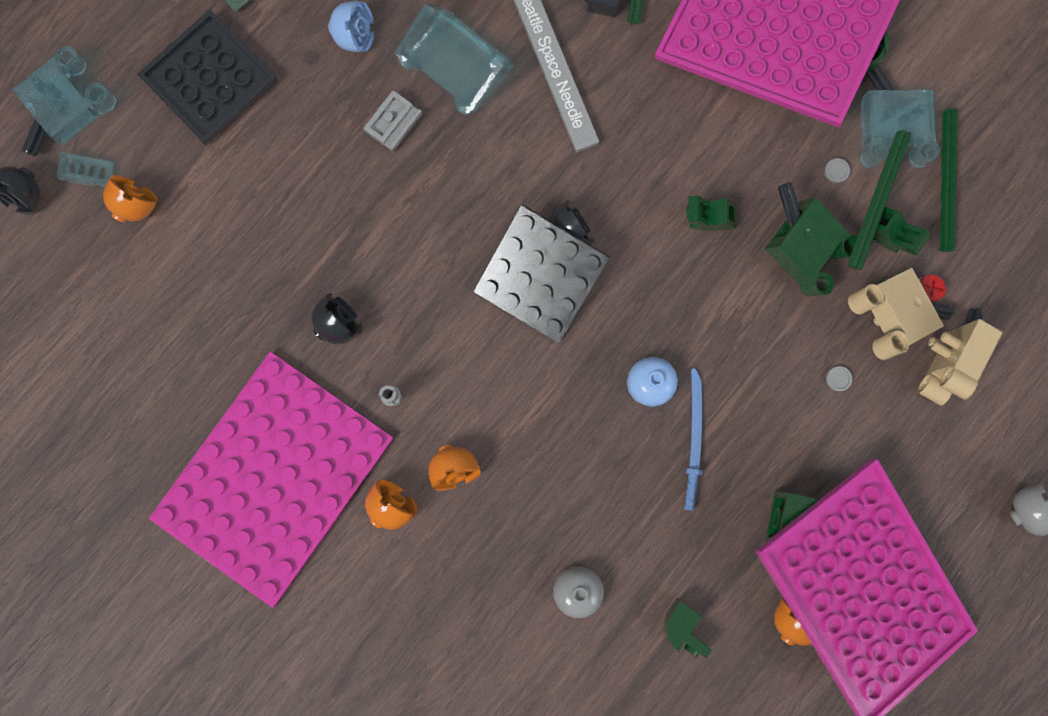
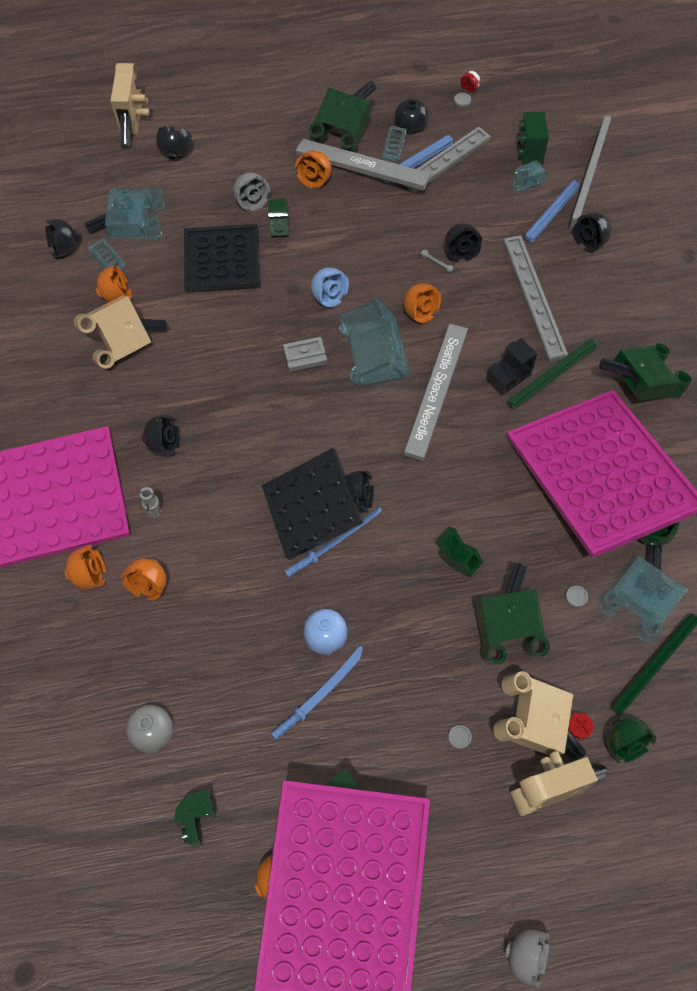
camera: 45 degrees right, 20 degrees down
(185, 243) = (119, 328): none -> tan piece
(581, 321) = (312, 556): none -> medium blue sword
(879, 200) = (585, 629): dark green axle -> none
(898, 235) = (582, 663): dark green brick -> none
(979, 267) = (629, 739): none -> dark green cylinder

